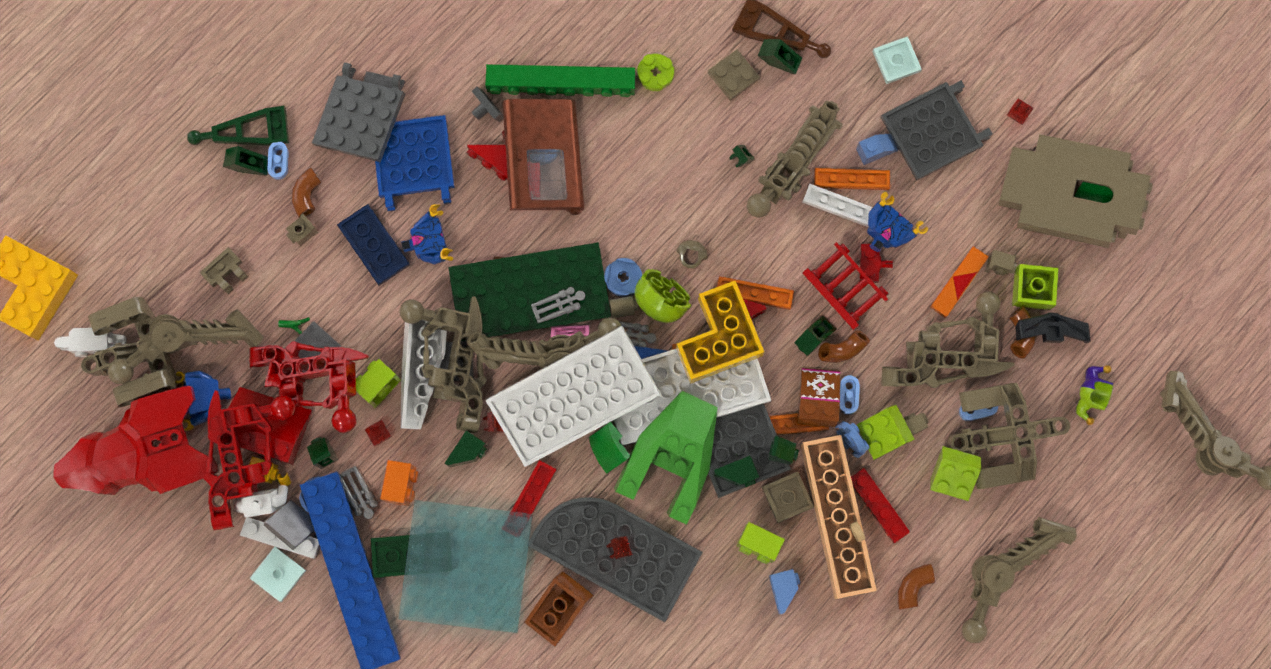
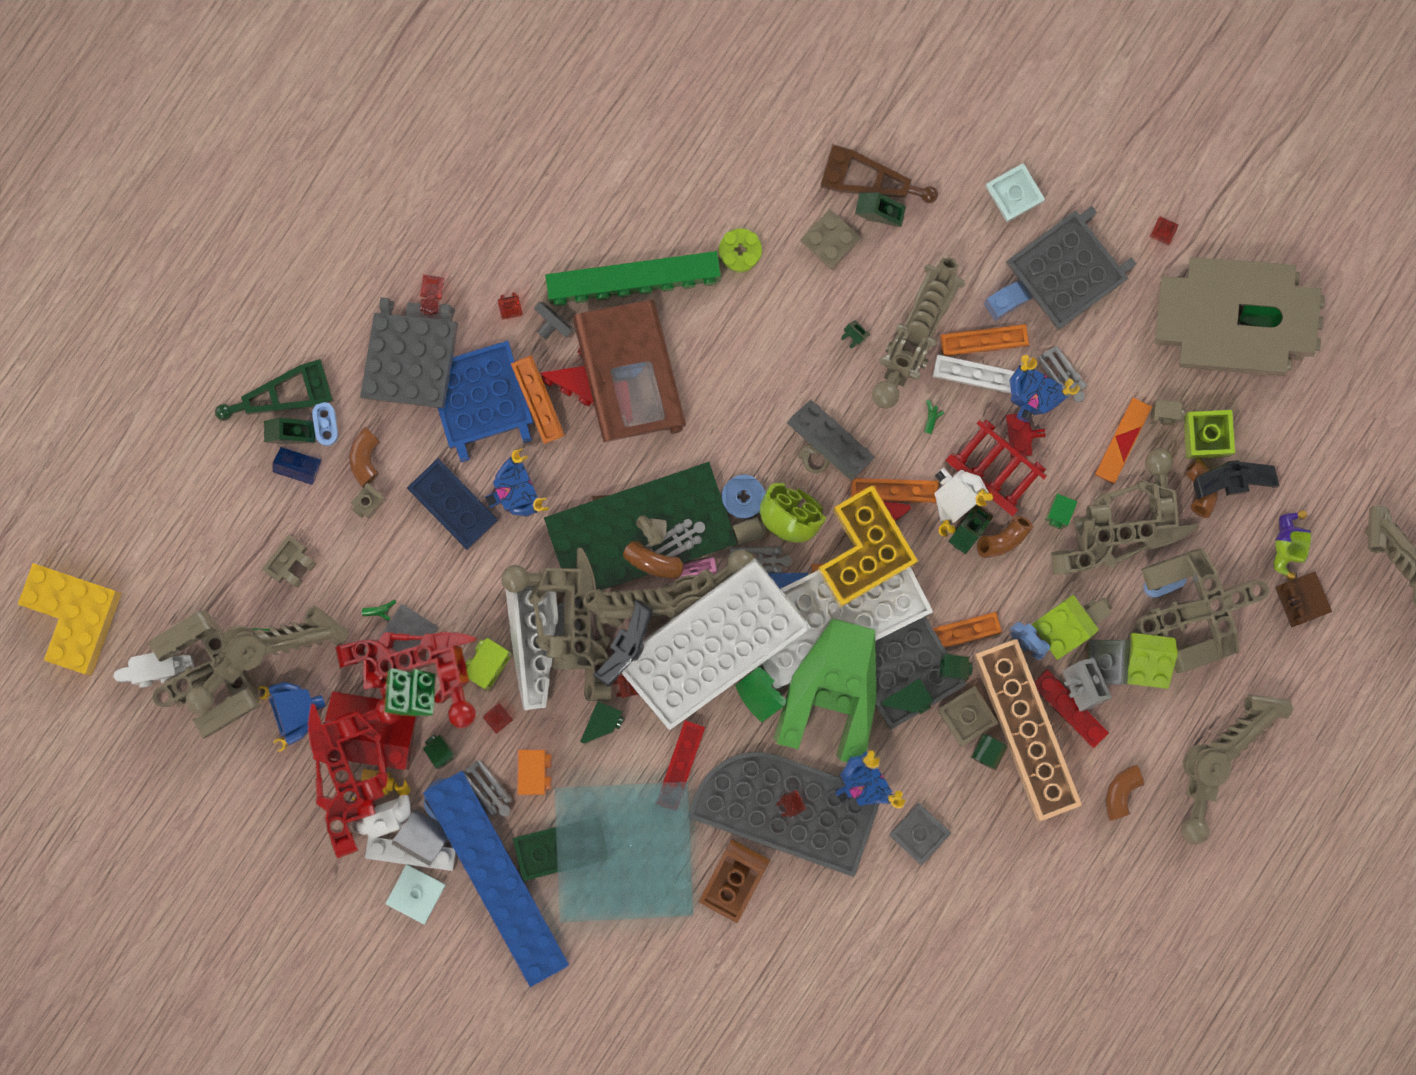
camera: 10 degrees left, 5 degrees up
(127, 452) = (224, 785): red piece -> none
(247, 192) = (296, 465): none -> clear blue slope
(302, 394) = (410, 692): none -> green slope
(388, 63) = (431, 289): none -> clear red plate
(452, 88) = (510, 306): none -> clear red tile
(461, 167) = (537, 399): none -> orange tile
(498, 384) = (627, 644): none -> black plate
(535, 319) = (652, 562): none -> dark orange cylinder
(539, 290) = (653, 529): none -> dark tan piece
(689, 539) = (867, 783): none -> blue torso
(706, 240) = (831, 440): none -> dark grey plate
(729, 594) = (920, 834): none -> flat silver tile
(760, 543) = (946, 773): lime brick -> none
(784, 588) = (980, 818): medium blue slope -> none
(796, 236) = (932, 417): none -> green bar
(801, 531) = (989, 751): none -> dark green piece
(808, 305) = (958, 496): none -> white torso
(819, 397) = (985, 598): dark orange slope -> none
(849, 395) = (1019, 590): light blue plate -> none
(857, 531) = (1051, 744): tan tile -> none
(896, 333) = (1060, 511): none -> green brick
(896, 485) = (1086, 684): none -> light grey brick
(918, 469) = (1111, 659): none -> flat silver tile
(926, 238) = (1079, 397): none -> light grey piece
(1098, 443) = (1303, 599): none -> reddish brown hinge

